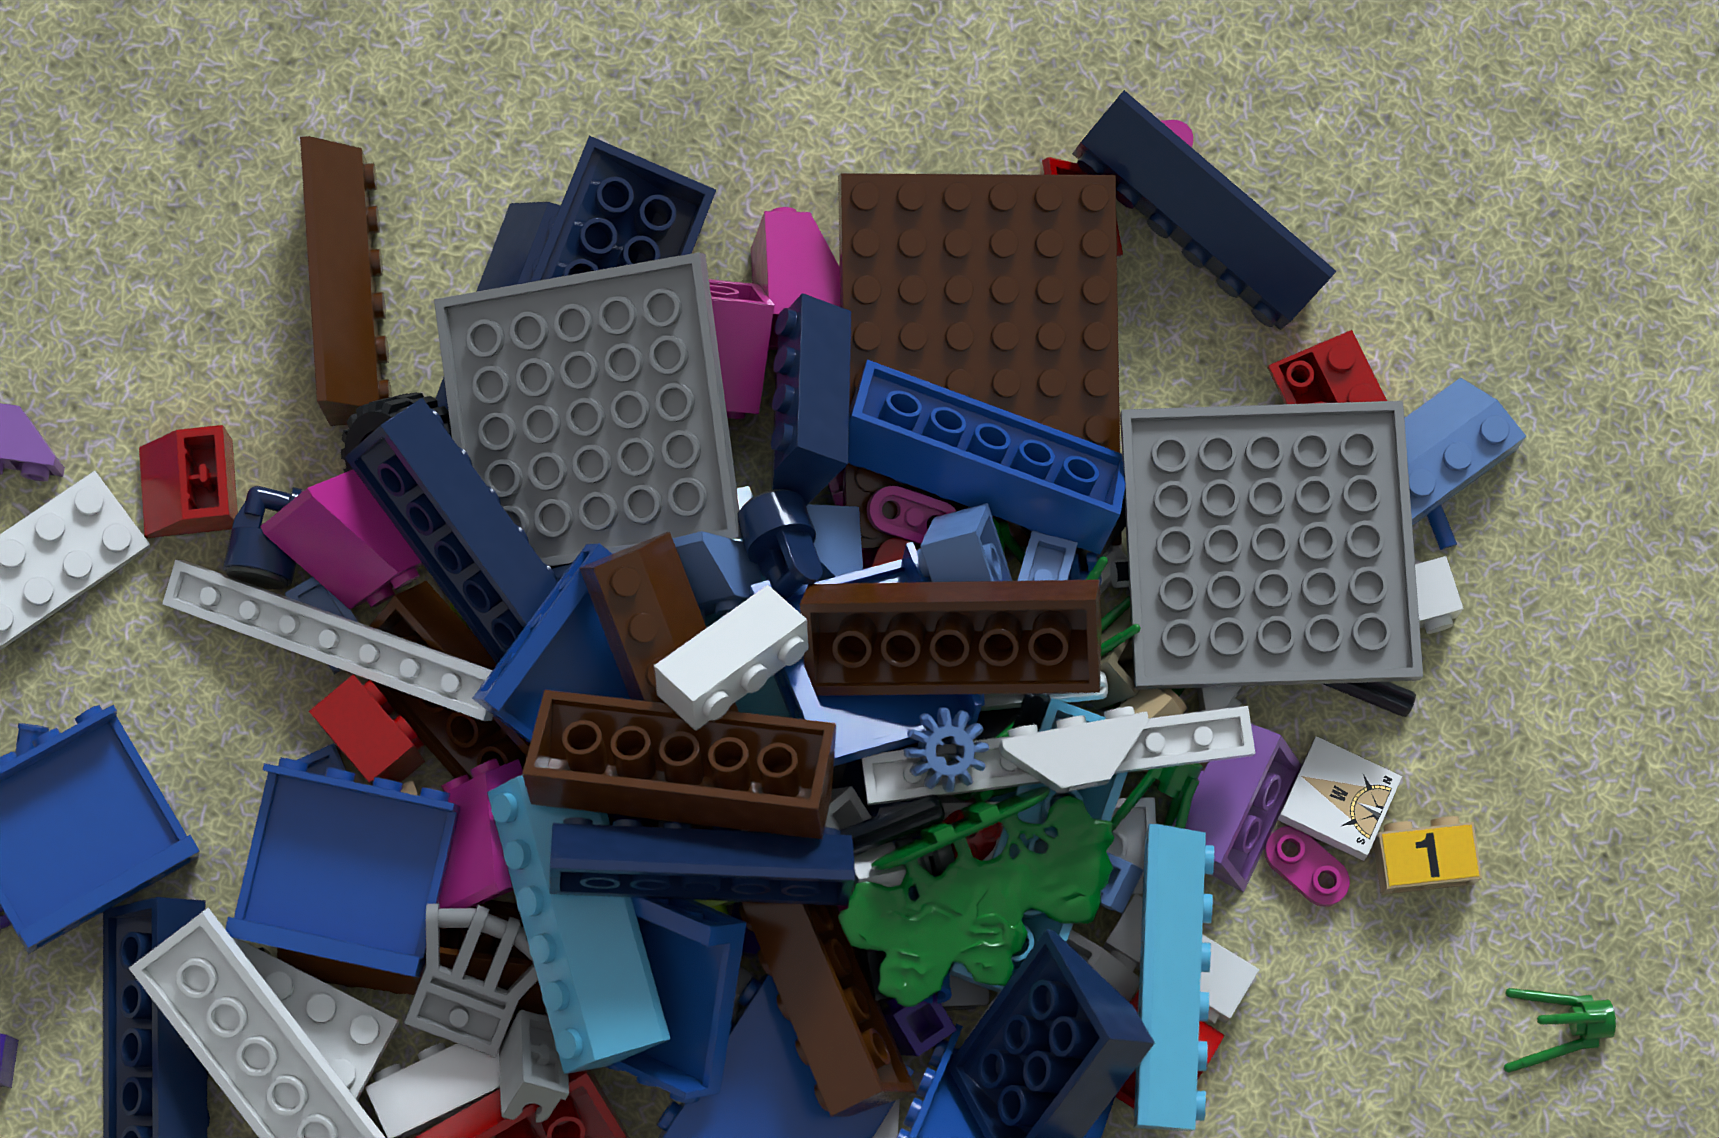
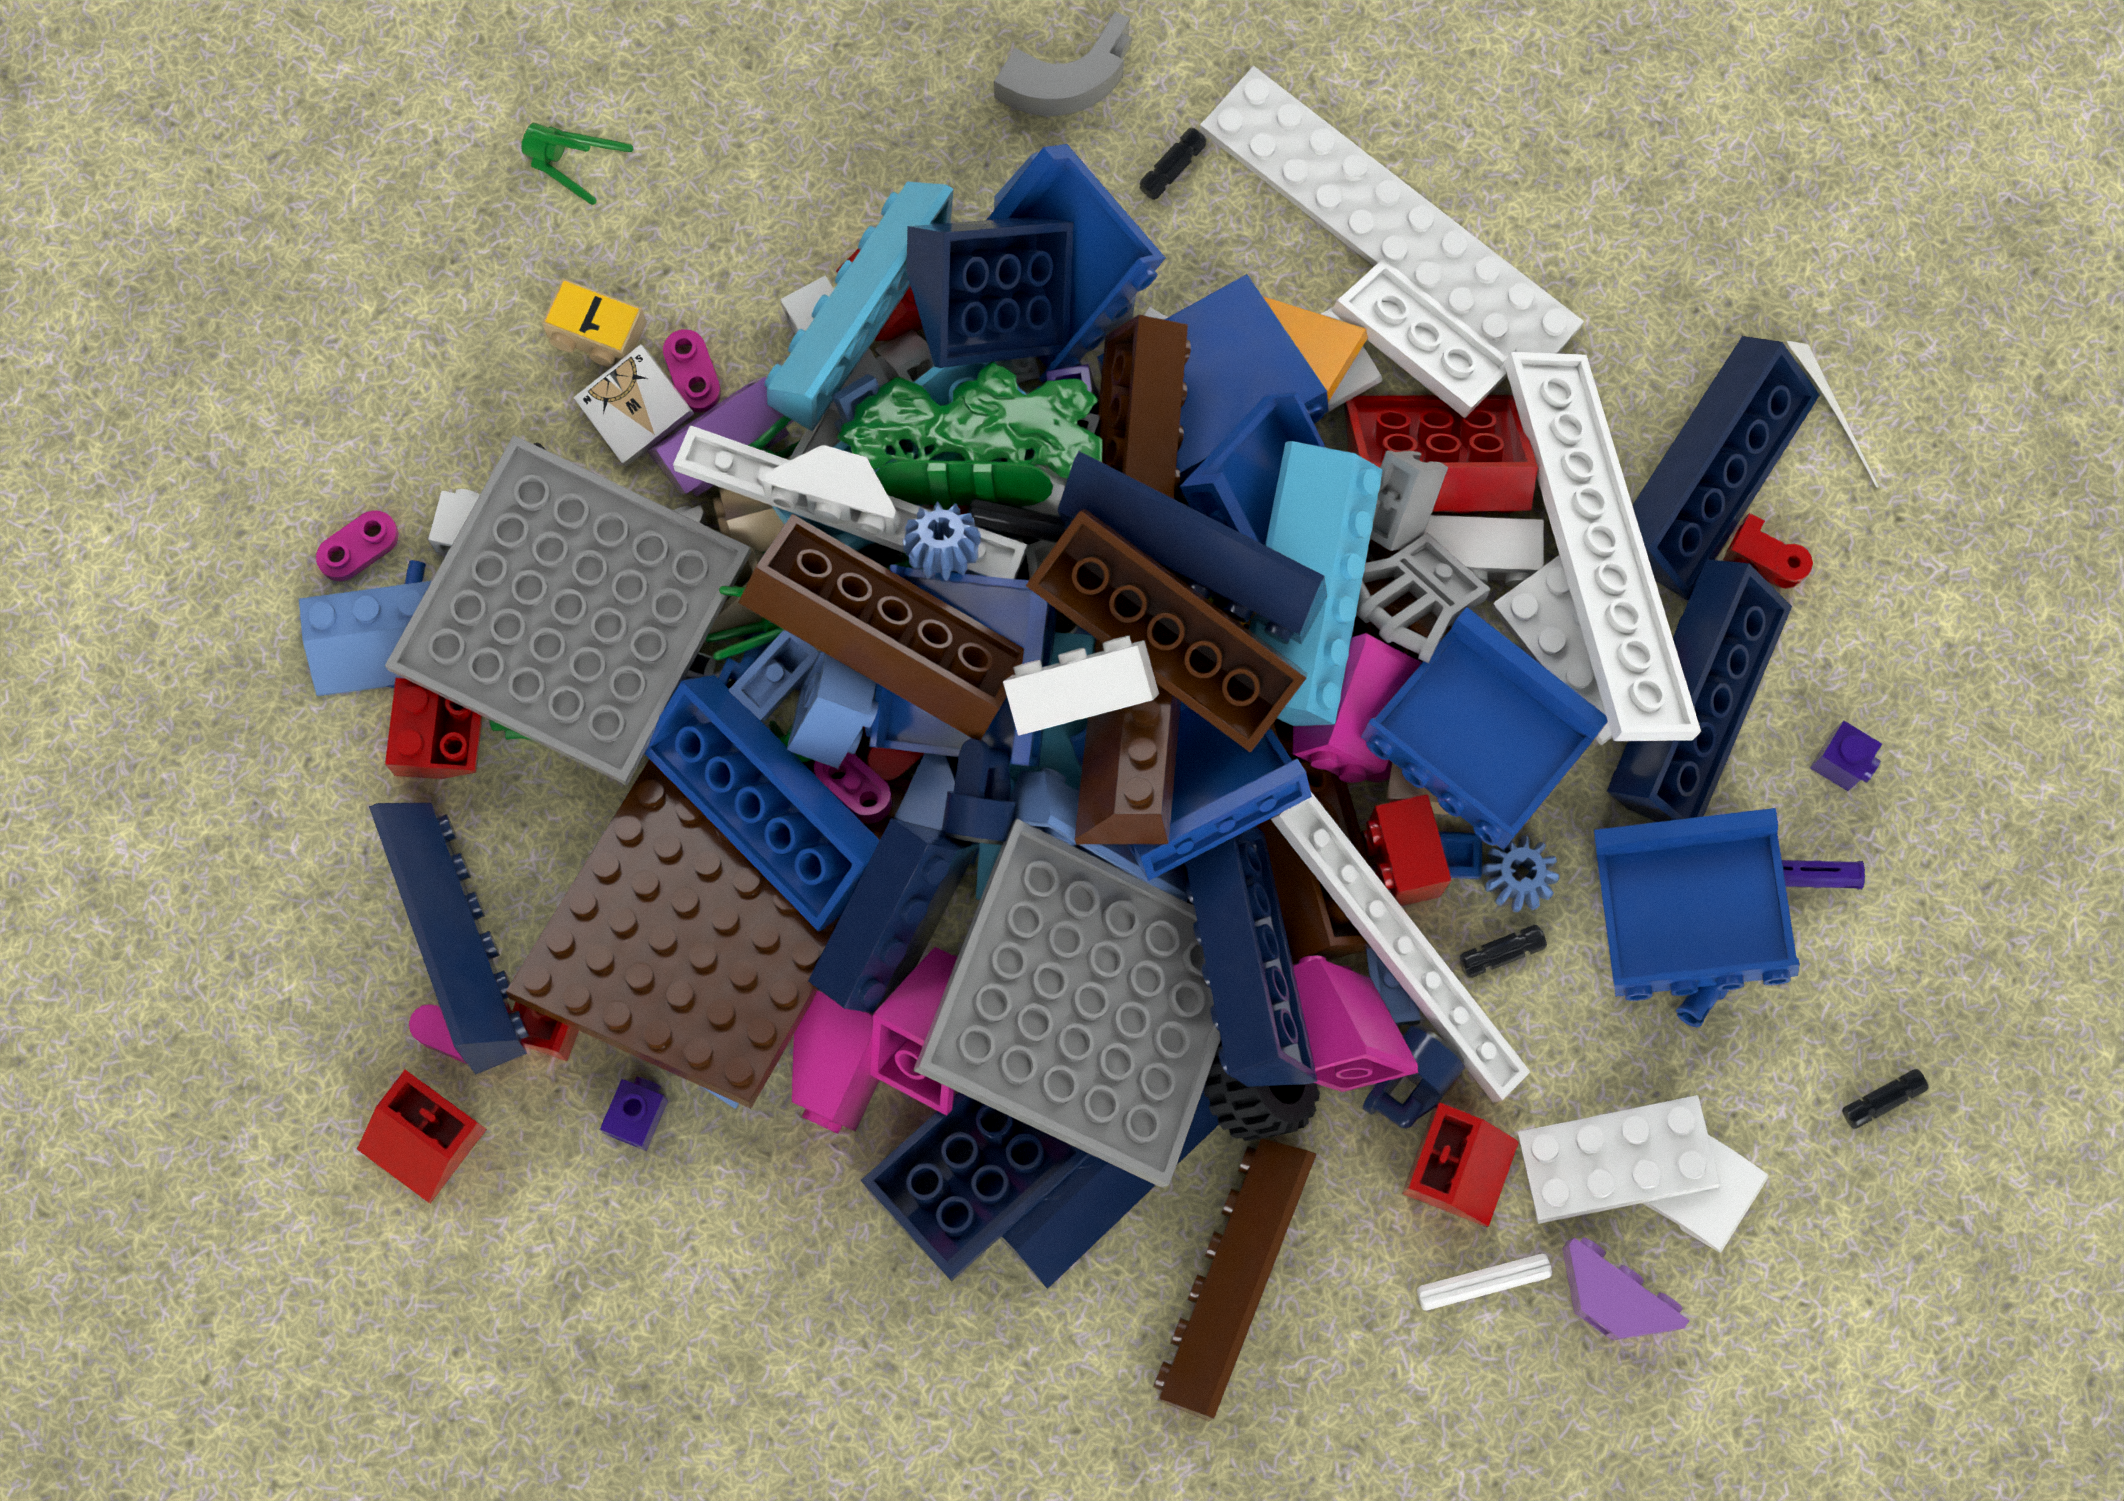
camera: 155 degrees left, 0 degrees up
(121, 400) = (1484, 1281): none -> white axle
(238, 704) = (1503, 951): none -> black axle
(240, 769) = (1526, 889): none -> medium blue gear
(950, 149) = (634, 1112): none -> dark purple brick
(1123, 51) = (419, 1136): none -> red slope
(1514, 529) = (358, 547): none -> dark pink plate

